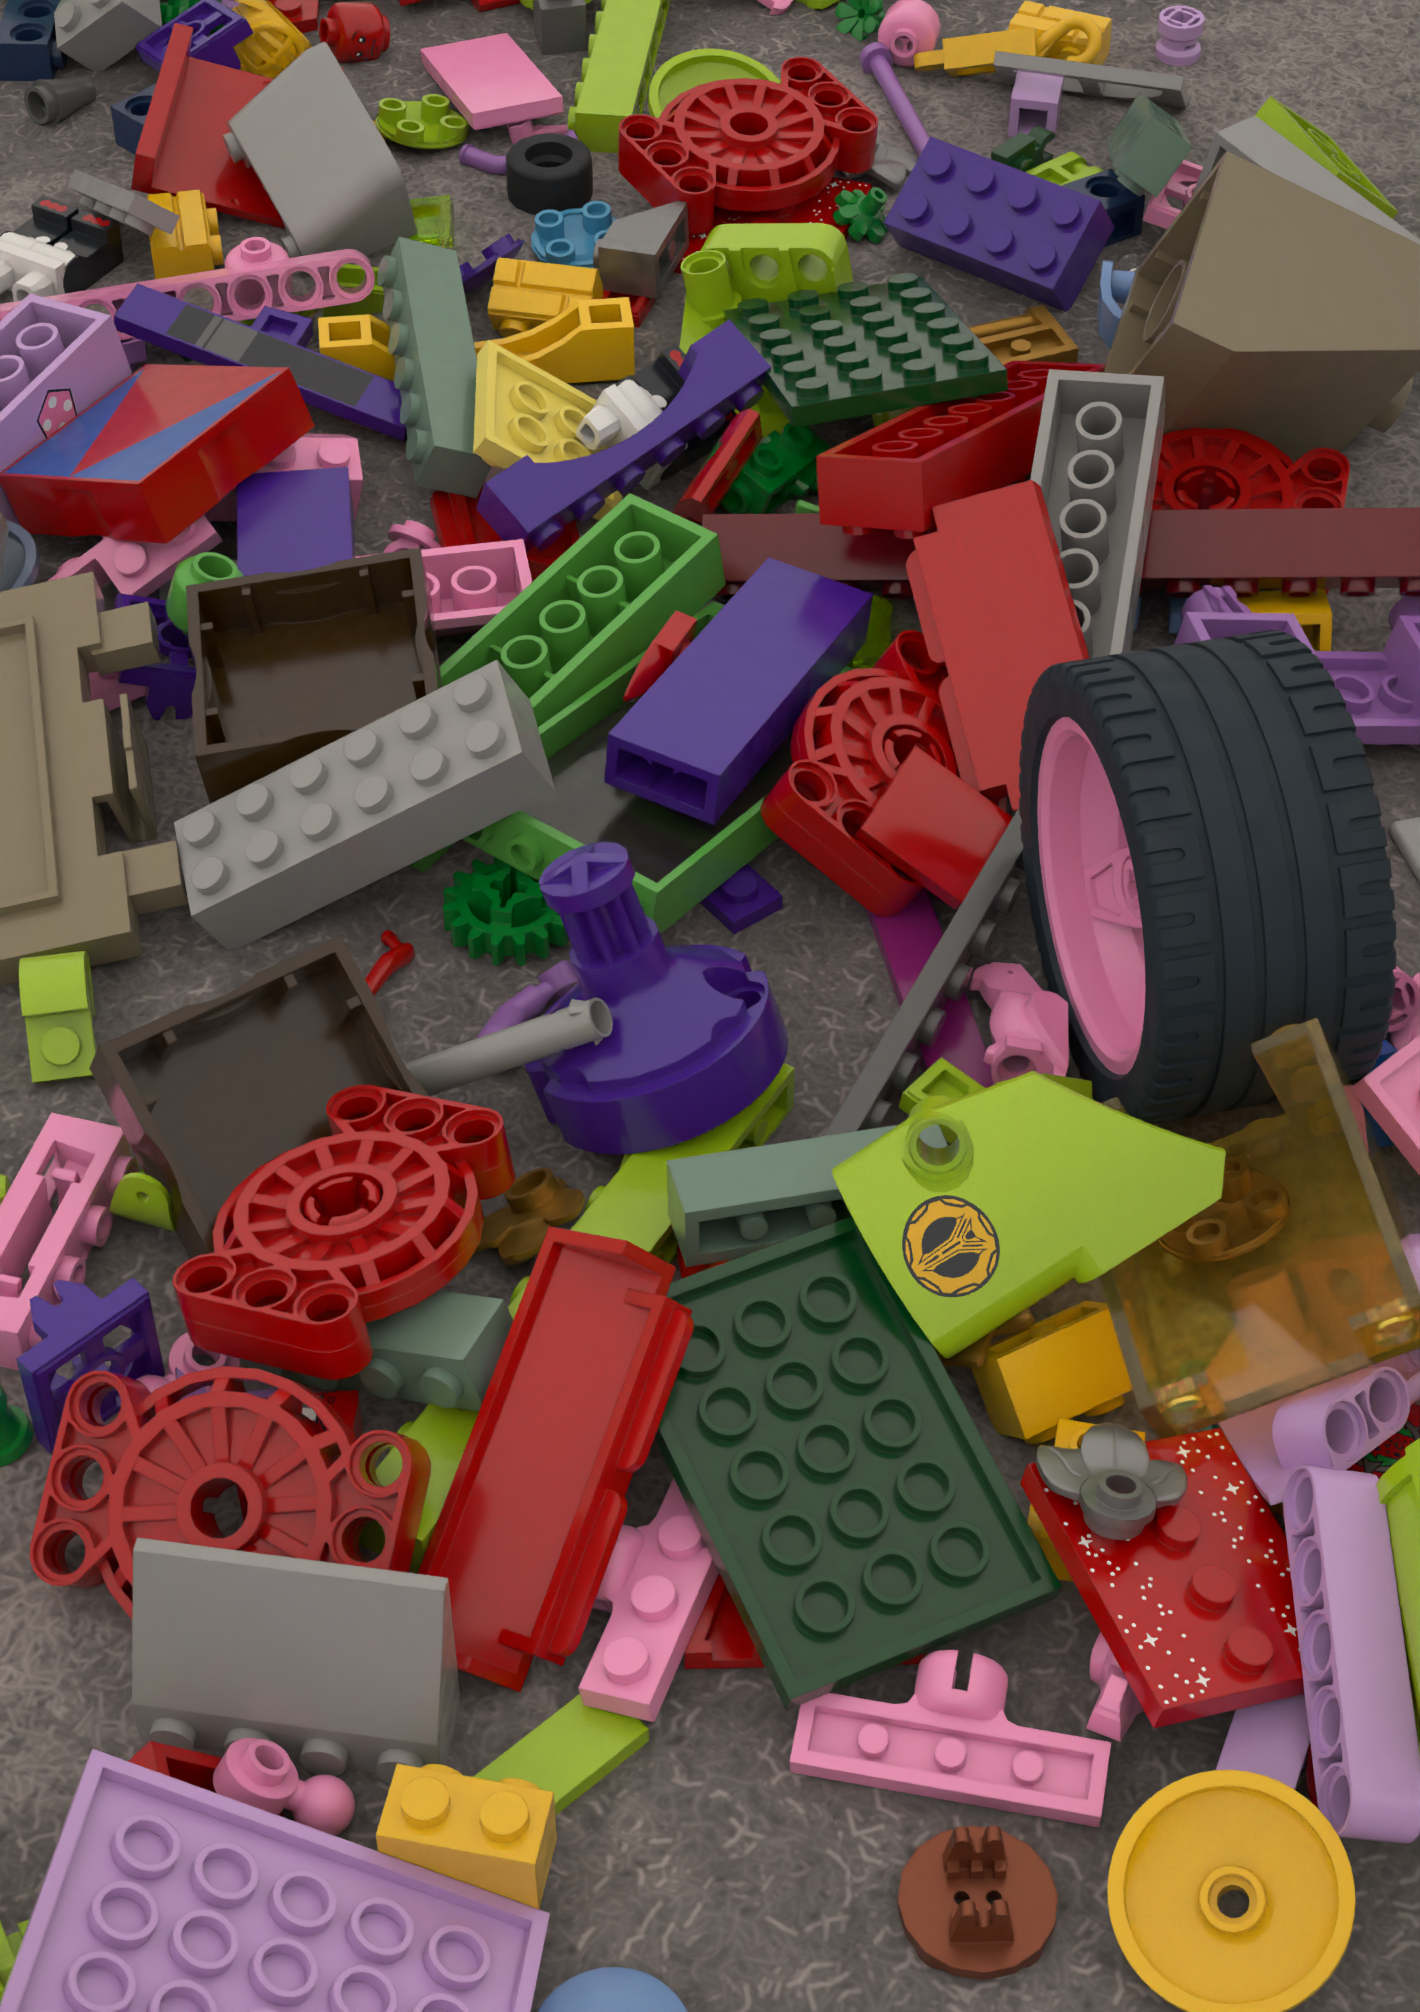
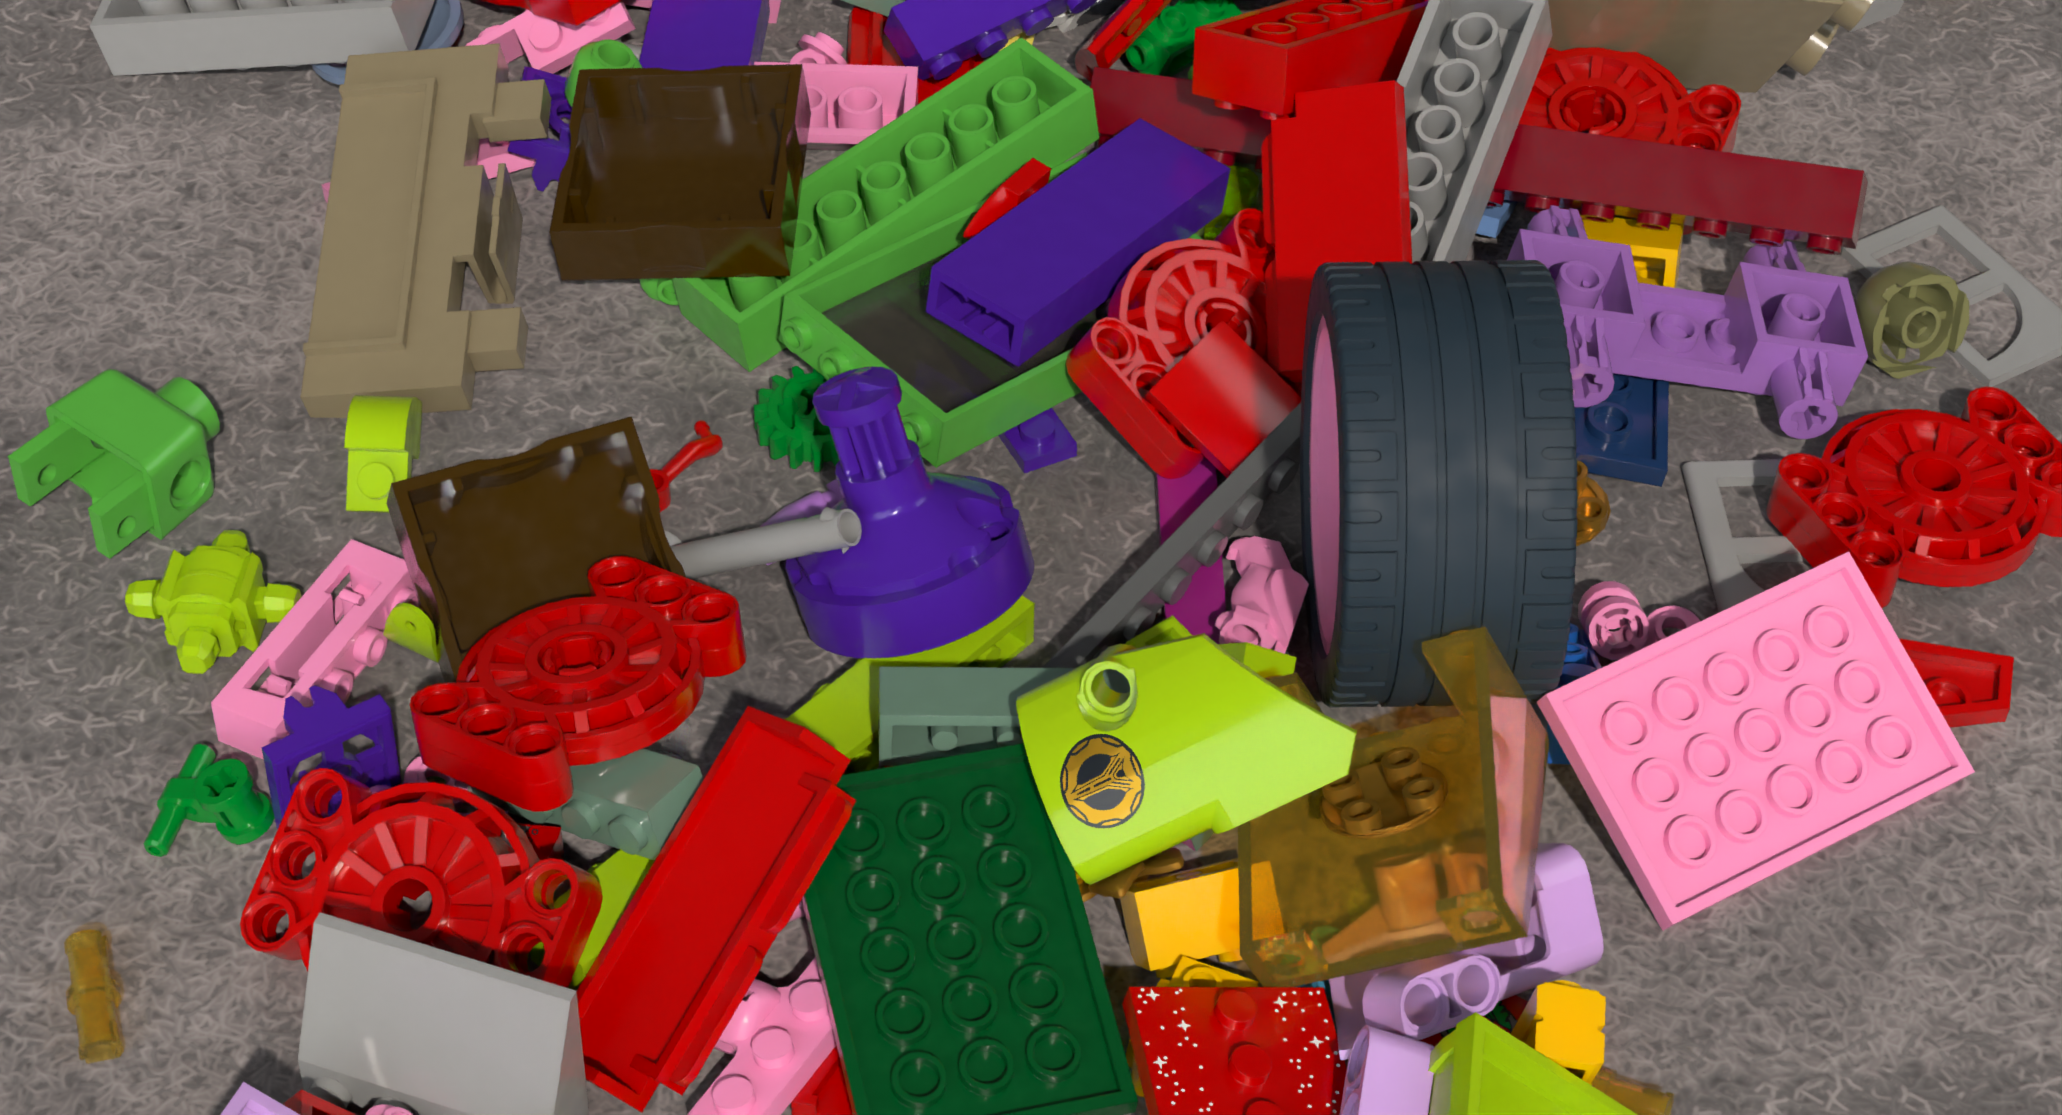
camera: 10 degrees right, 0 degrees up
(363, 807) = (695, 301): light grey brick -> none
(533, 1205) = (767, 687): pearl gold plate -> none
(1112, 1480) = (1199, 1012): flat silver plate -> none

